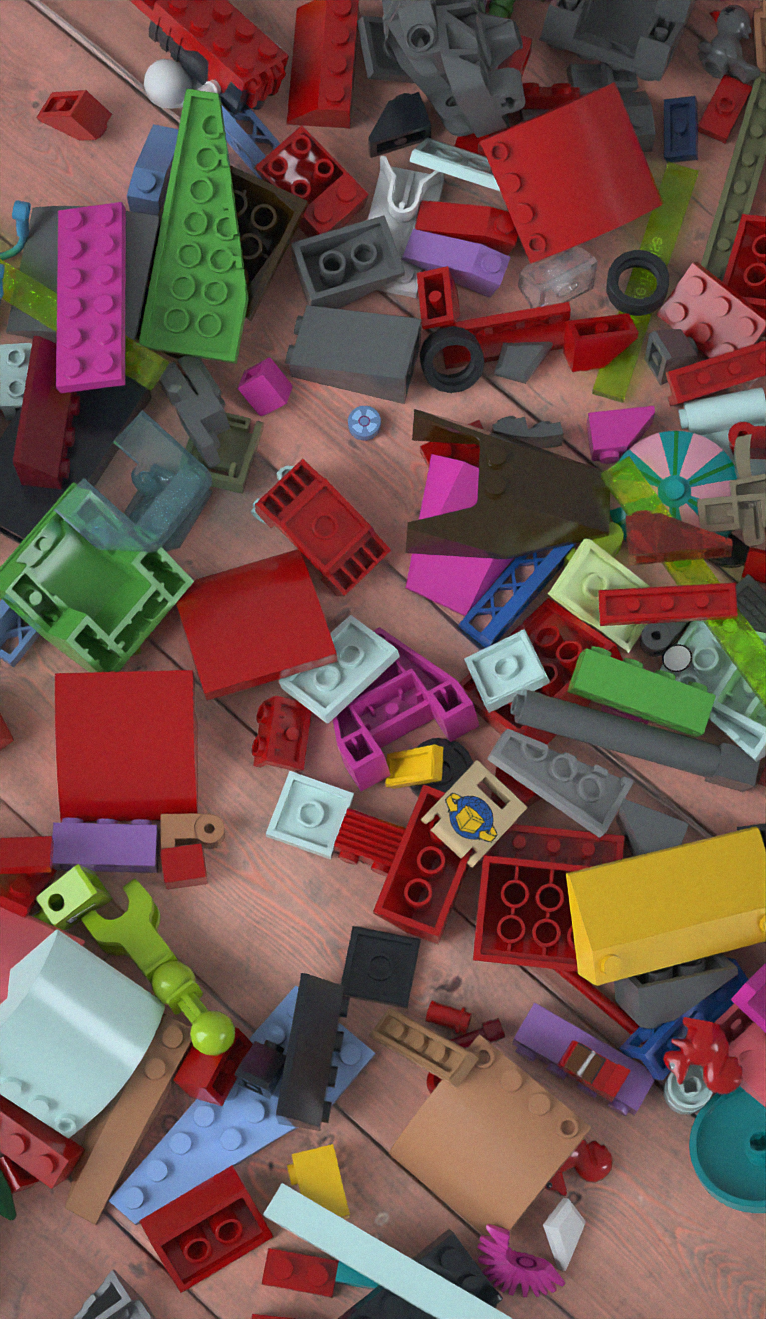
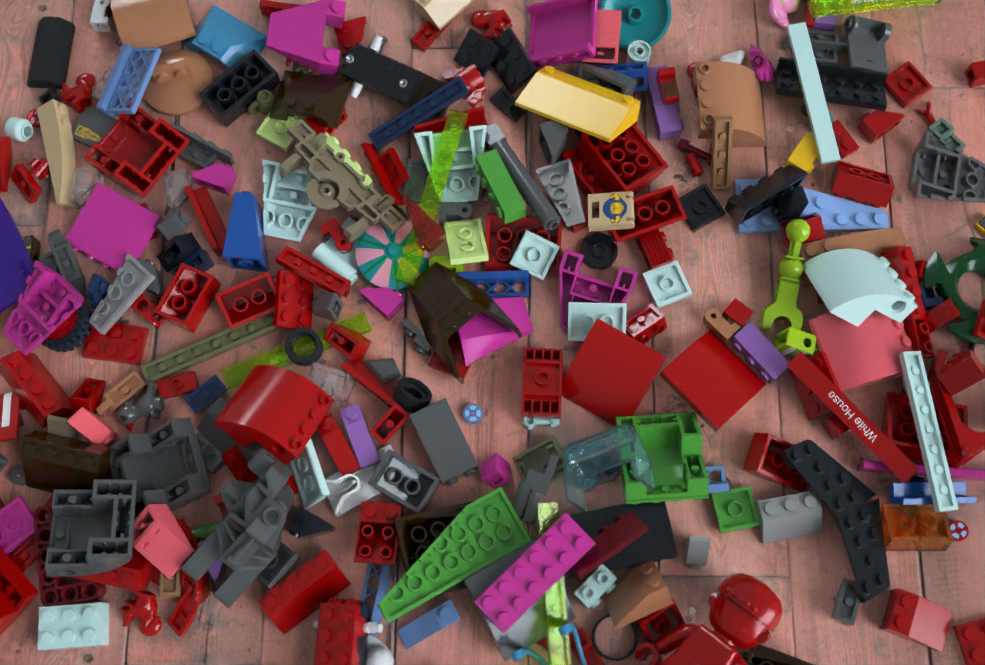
camera: 130 degrees left, 0 degrees up
(414, 766) = (609, 256): yellow tile -> none
(668, 604) = (450, 207): red tile -> none
(677, 658) = (466, 195): white sticker -> none
(709, 1048) = (623, 51): red animal -> none

